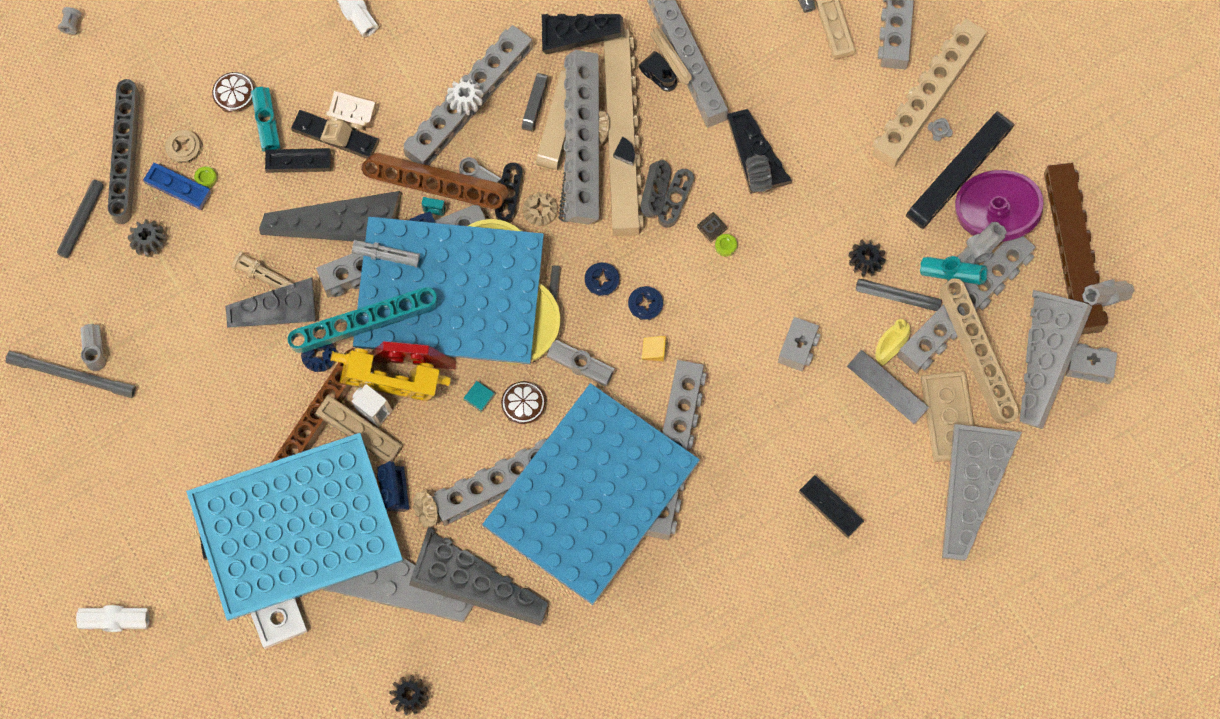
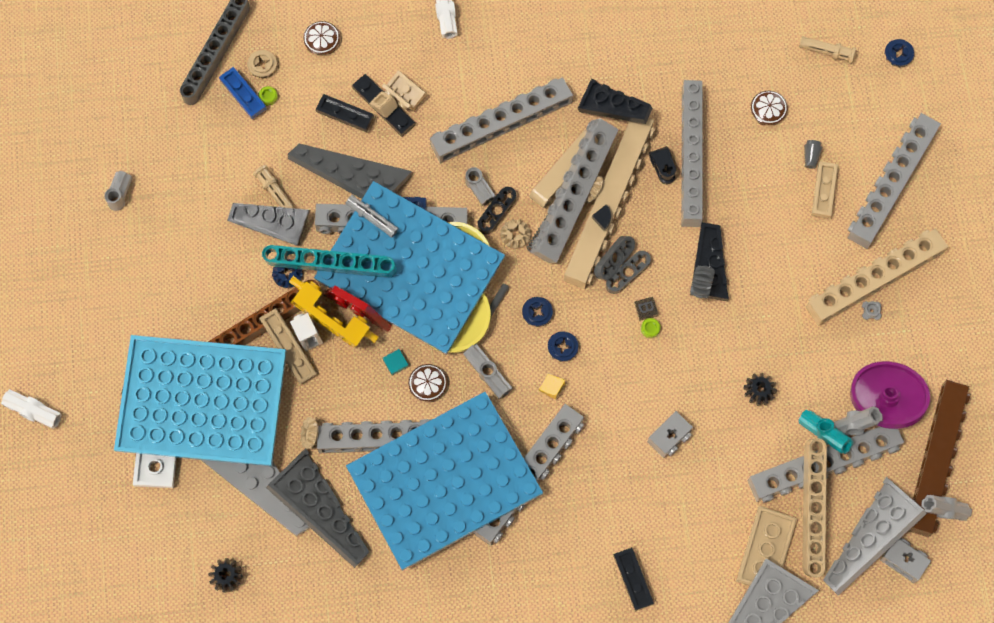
camera: 25 degrees right, 0 degrees up
(80, 218) = (157, 86): dark grey axle -> none
(115, 387) = (64, 180): dark grey piece -> none
(148, 231) = (202, 128): dark grey gear -> none
(263, 108) = (337, 60): teal piece -> none
(393, 487) = (292, 404): dark blue bracket -> none
(434, 205) = (432, 195): teal tile -> none
(444, 178) = (405, 147): dark orange beam -> none
(458, 95) = (490, 122): white gear -> none
(535, 102) = (552, 146): dark grey beam -> none
(671, 56) = (677, 156): tan axle -> none
(888, 387) = (726, 502): plate -> none
(892, 341) = (748, 466): light yellow arm -> none
(898, 295) = (771, 431): dark grey axle -> none
(960, 170) = (872, 351): black beam -> none

